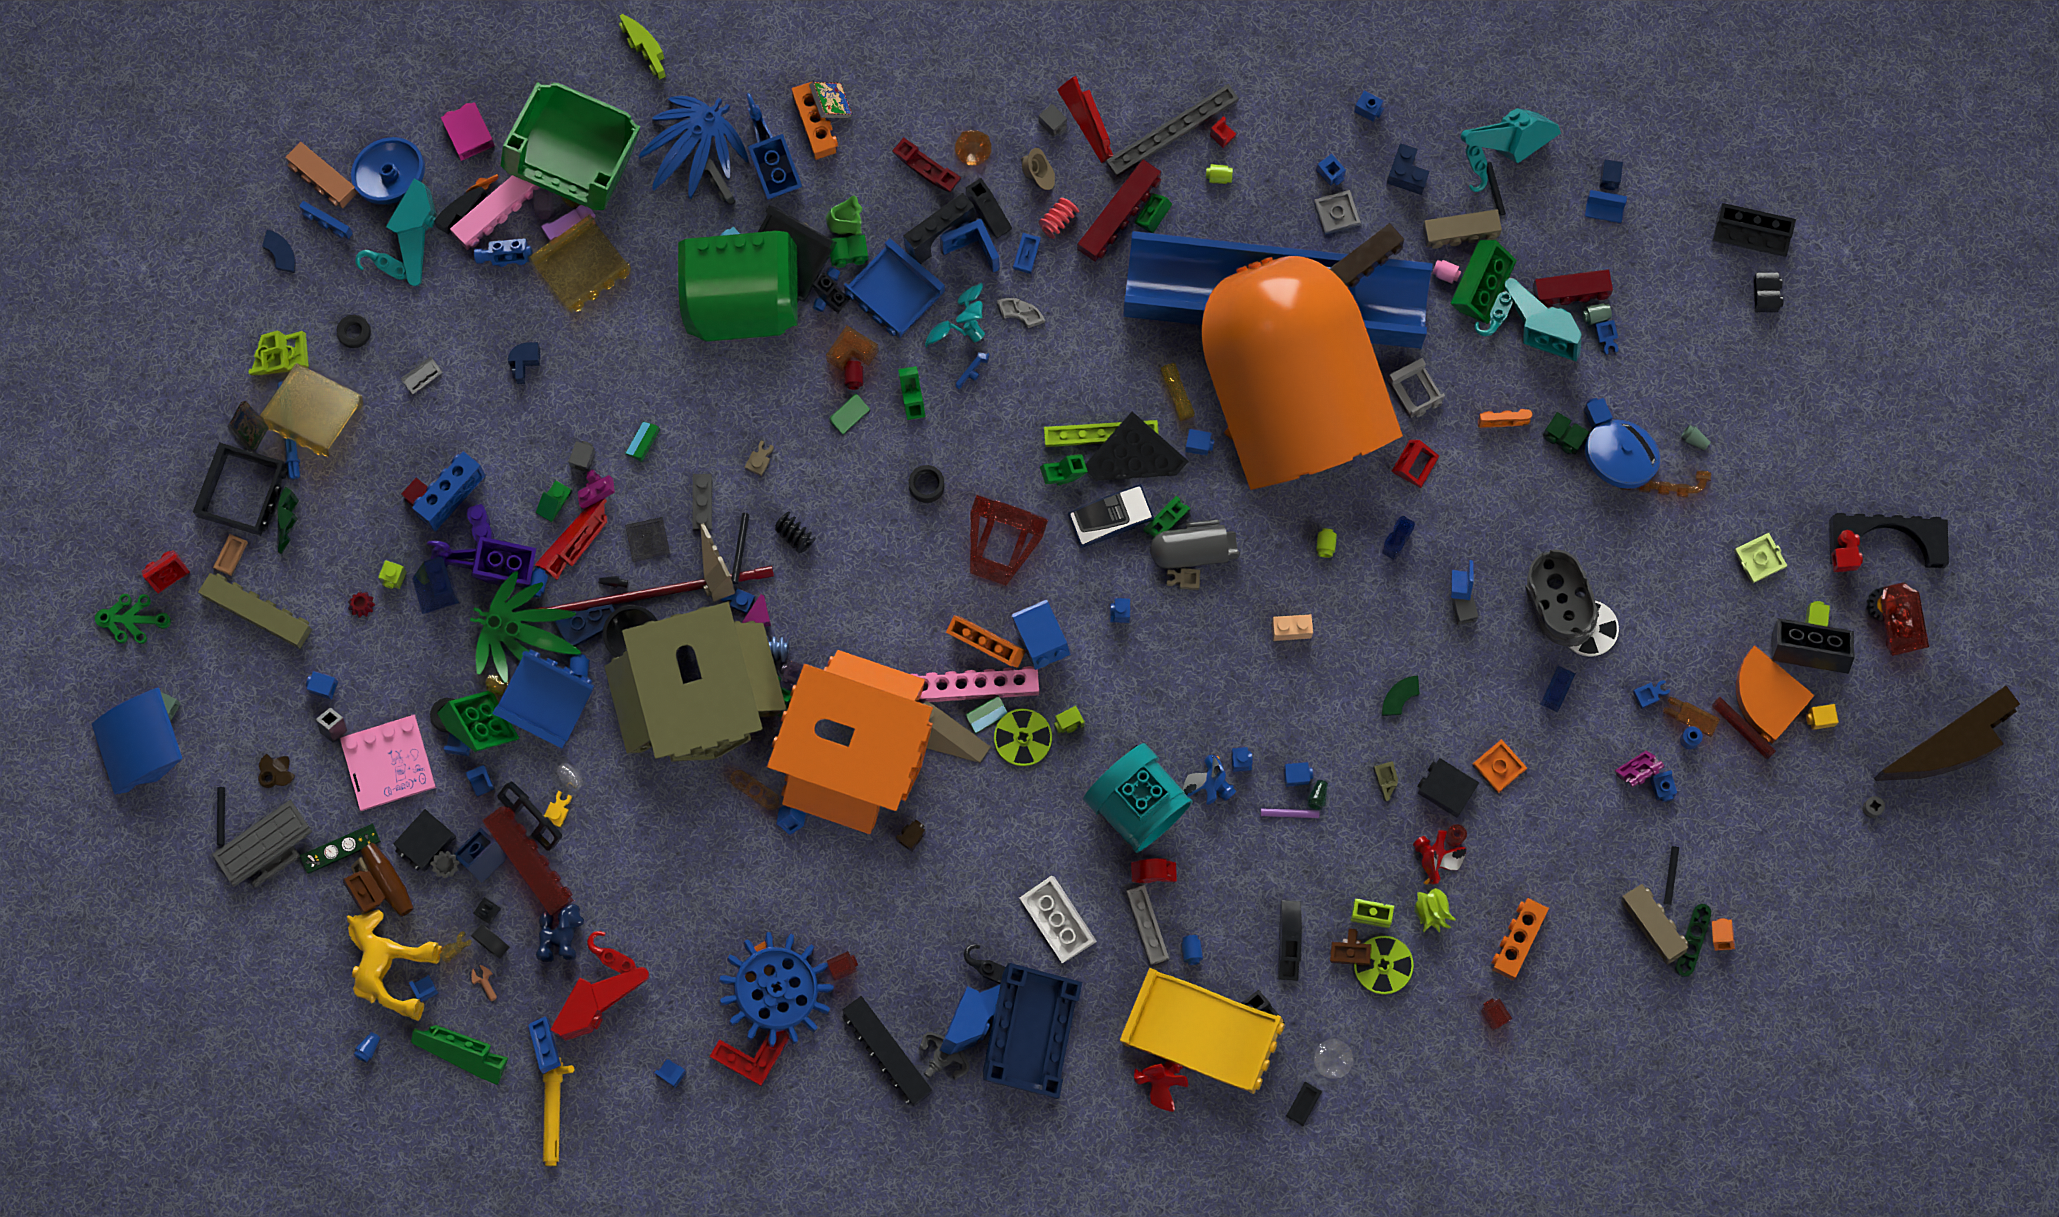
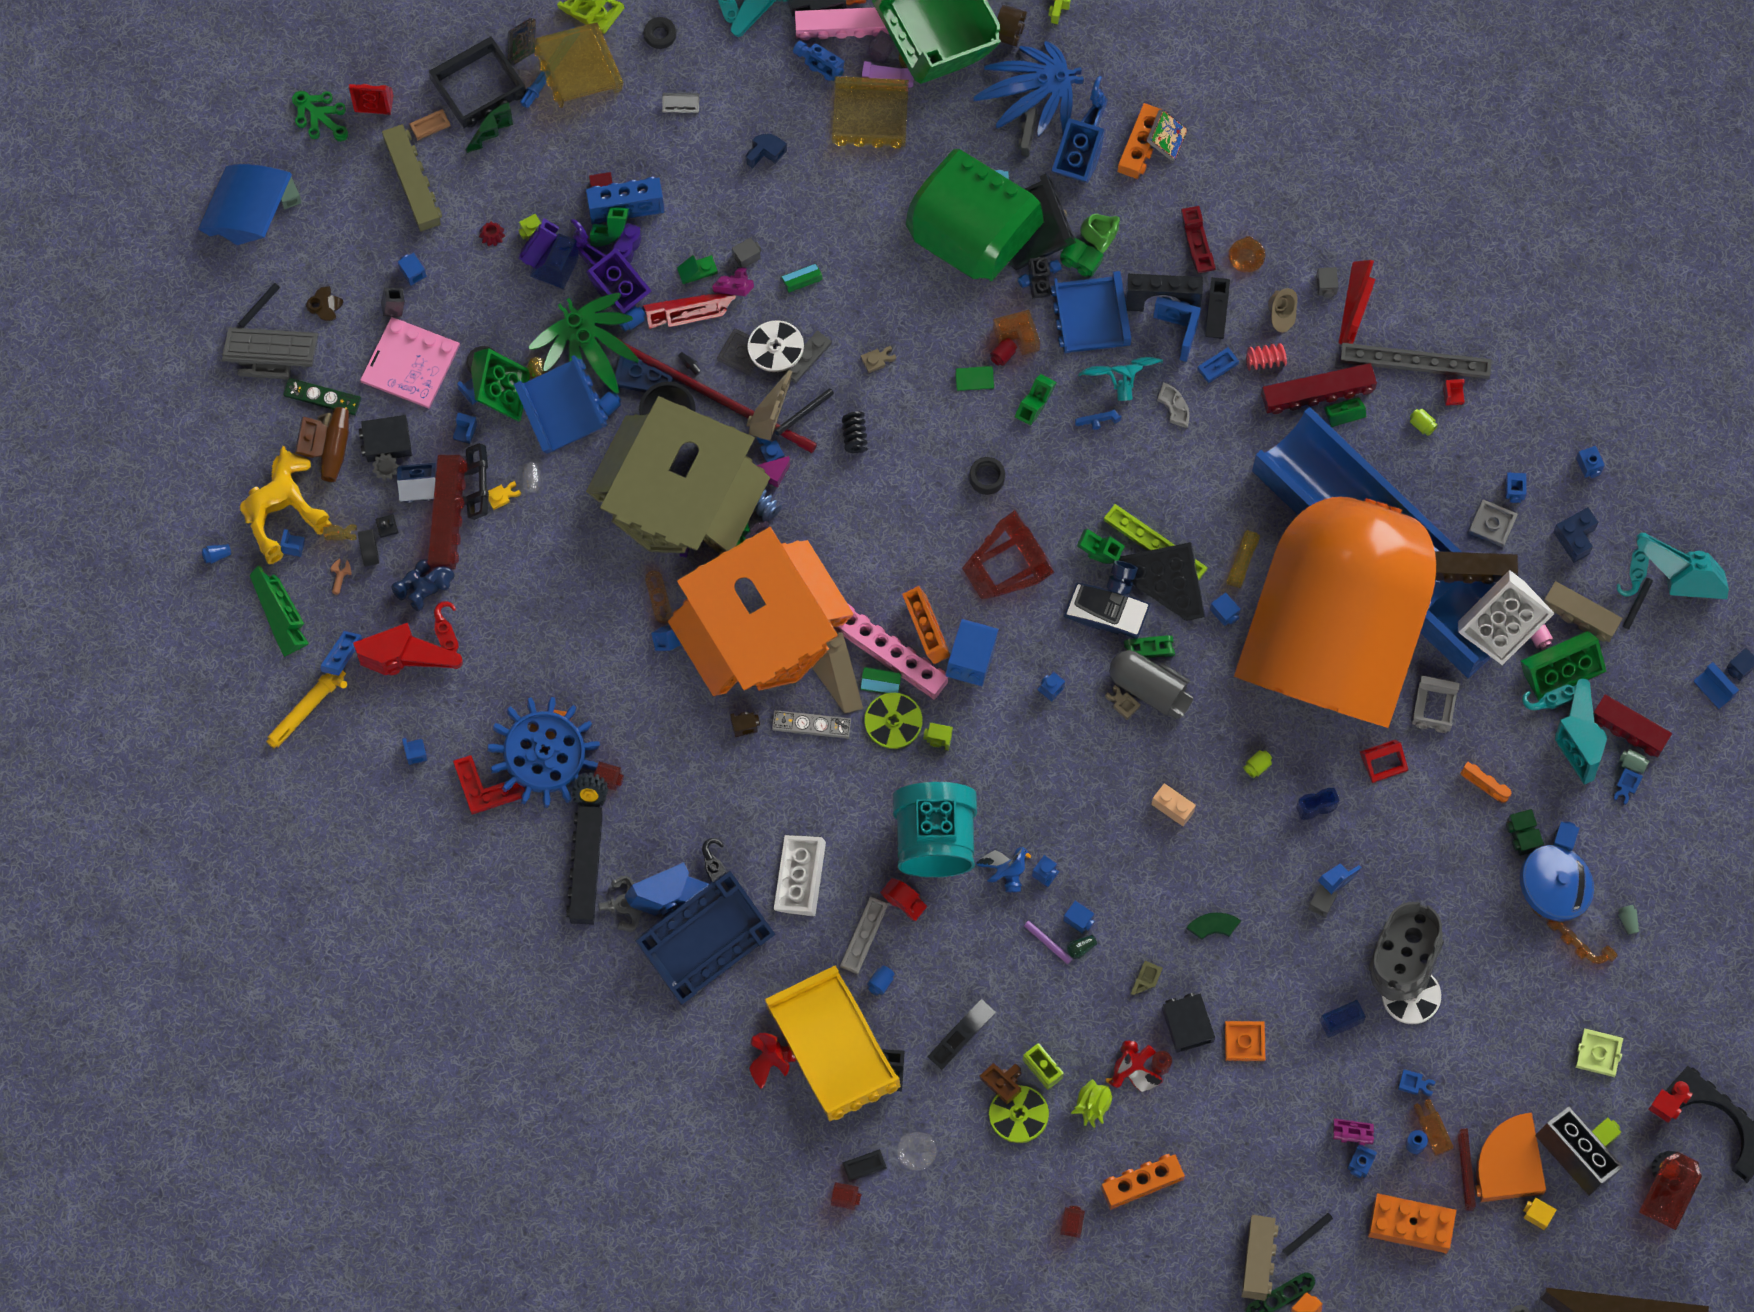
camera: 40 degrees right, 5 degrees down
(410, 582) = (538, 243): none -> dark purple window
(458, 529) = (606, 234): none -> green brick
(630, 102) = (1011, 24): none -> dark brown brick
(667, 527) = (771, 333): none -> white piece
(840, 990) = (589, 790): none -> black wheel
(962, 792) = (811, 724): none -> light grey tile
(1103, 484) = (1121, 579): none -> dark blue wheel
(1312, 1140) = (845, 1196): none -> clear red brick
(1418, 280) = (1504, 618): none -> white slope
(1725, 813) = (1392, 1223): none -> orange brick

